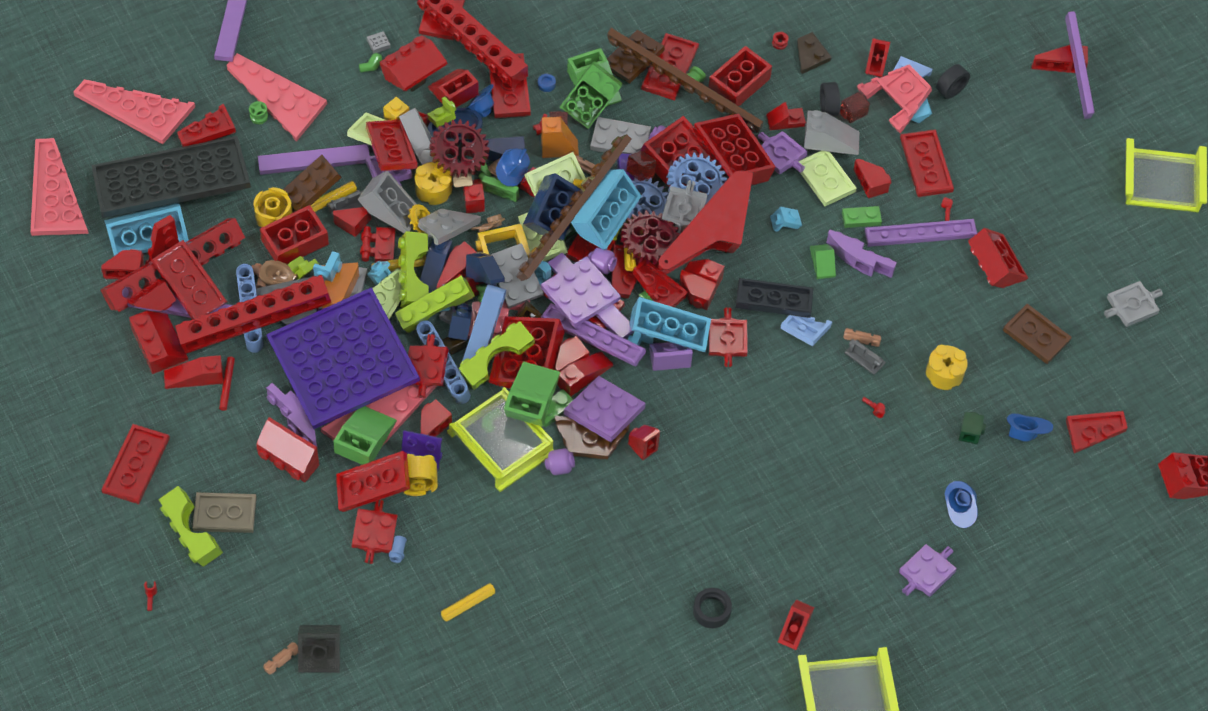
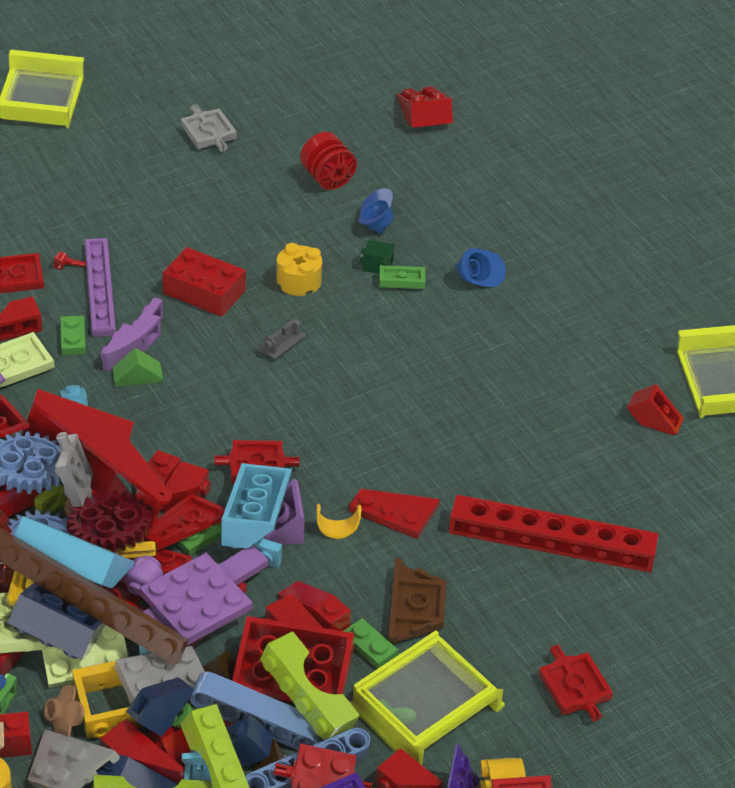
camera: 90 degrees left, 15 degrees down
(468, 602) = (682, 736): yellow axle -> none
(514, 535) = (575, 683): none -> red plate
(531, 394) = (377, 638): bright green slope -> none
(560, 461) = (459, 631): medium lavender head -> none
(599, 338) = (262, 589): medium lavender tile -> none
(604, 408) = (377, 582): medium lavender plate -> none
(644, 441) = (423, 538): red slope -> none
(646, 597) = (553, 533): none -> red brick
(666, 386) = (340, 528): none -> yellow helmet
(683, 430) = (396, 511): none -> red wing
(712, 593) = (642, 499): black tyre -> none
(774, 297) = (196, 416): black tile -> none
(805, 328) = (243, 388): light blue wing -> none
(863, 337) = (253, 342): nougat axle -> none
(879, 408) = (355, 331): red hand -> none
(925, 300) = (204, 281): none -> red brick
(927, 570) = (564, 305): medium lavender plate -> none
(949, 446) = (402, 277): none -> bright green plate
(997, 258) = (147, 223): red slope -> none
(1037, 333) = (248, 200): reddish brown plate -> none
(1087, 388) = (328, 160): none -> red wheel
(1094, 428) = (371, 170): red wing -> none

